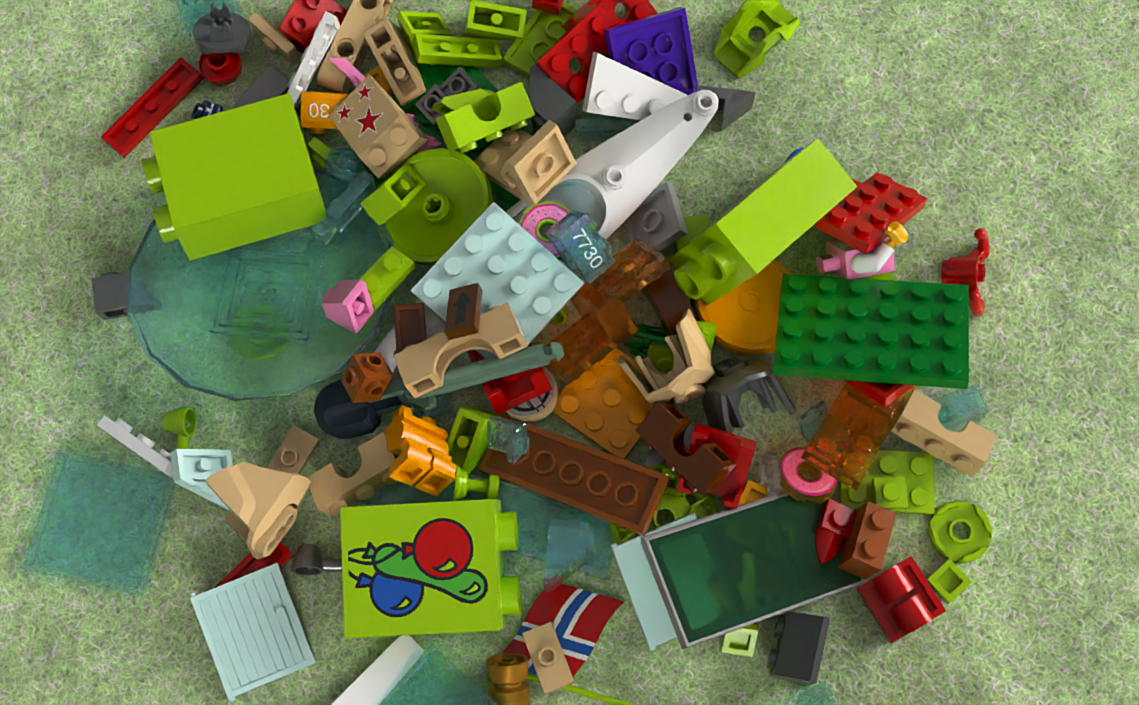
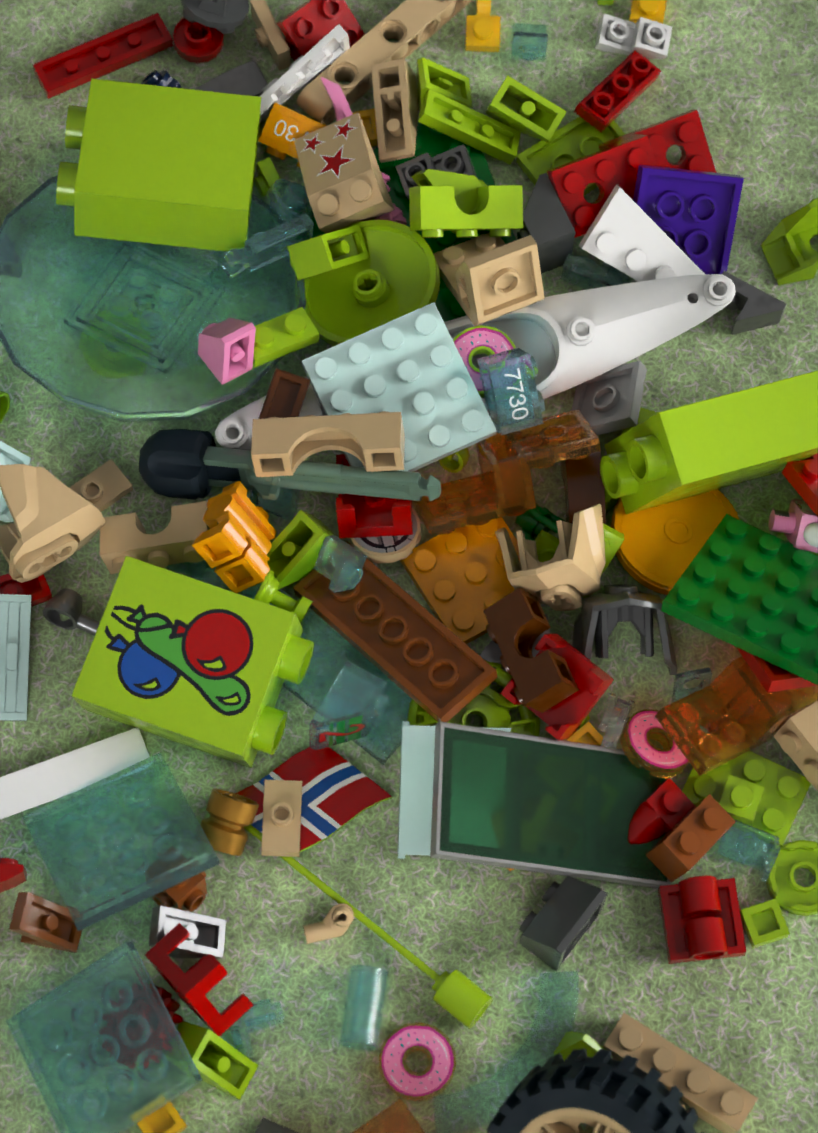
camera: 15 degrees right, 5 degrees down
(366, 377) = (213, 432): dark orange brick -> none
(463, 311) = (348, 402): reddish brown tile -> none
(740, 641) = (502, 886): lime plate -> none
(917, 525) = (750, 847): none -> clear light blue bracket

